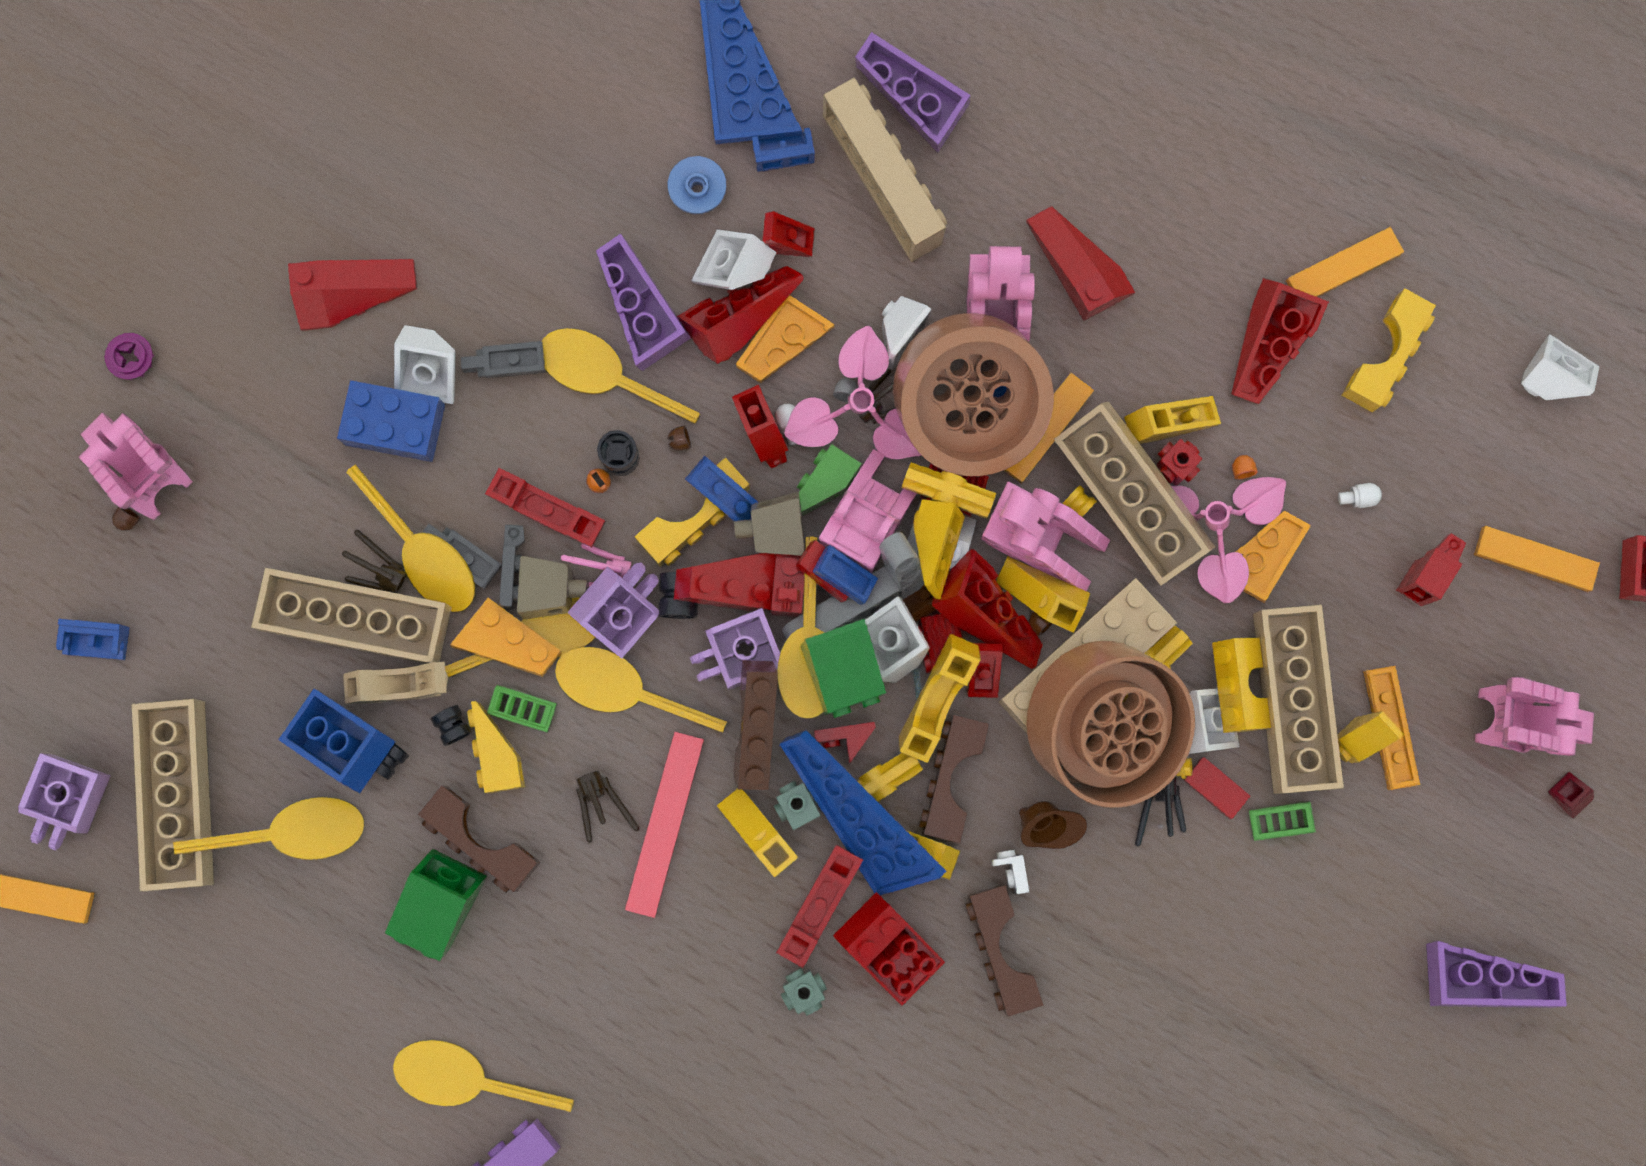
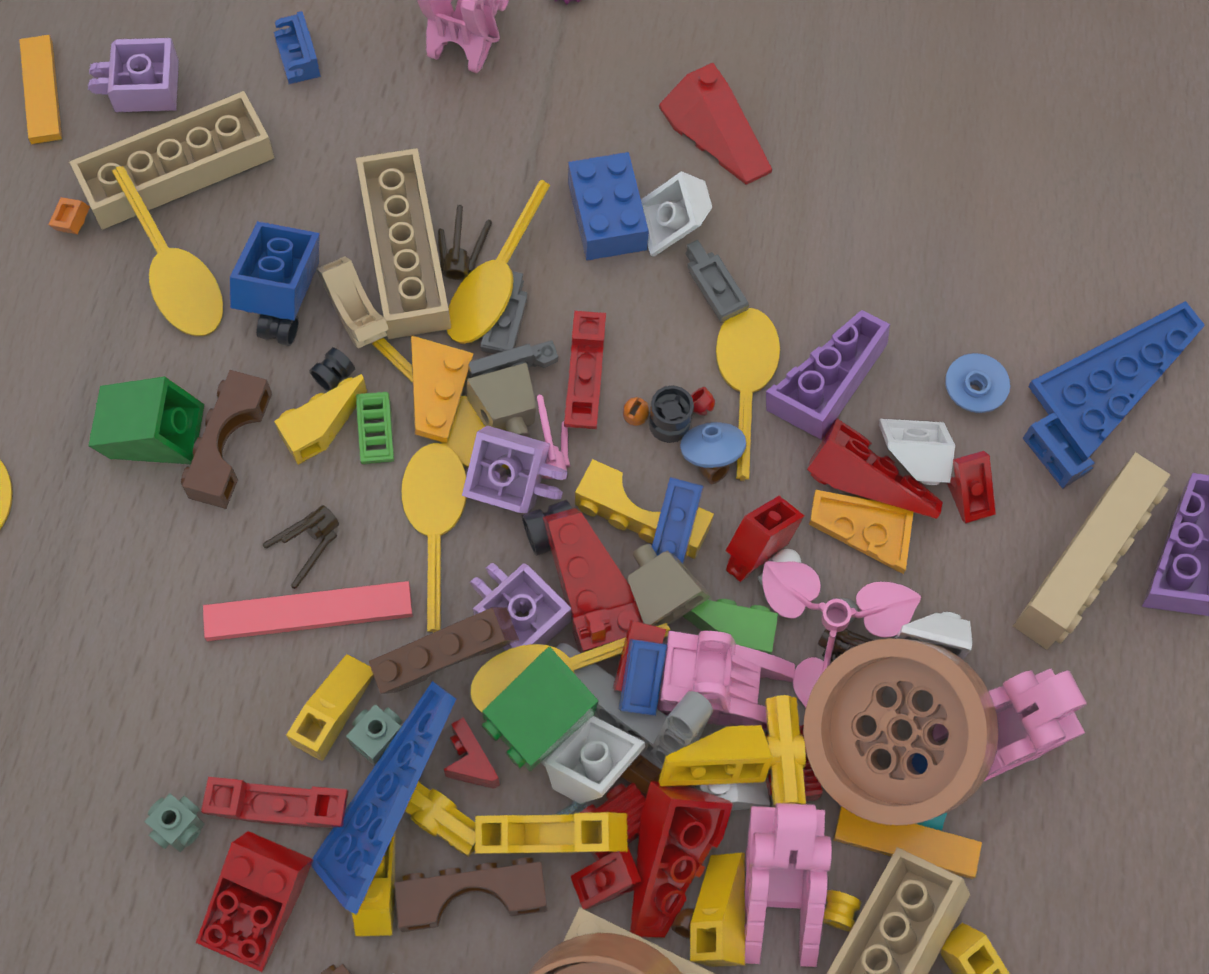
camera: 70 degrees right, 15 degrees down
(125, 518) = (417, 33): reddish brown hinge -> none
(188, 910) = (69, 215): none -> orange plate
(614, 421) = (703, 401): none -> red hinge
(668, 433) = (713, 445): none -> medium blue dish
(1082, 267) = (1104, 809): red wedge -> none

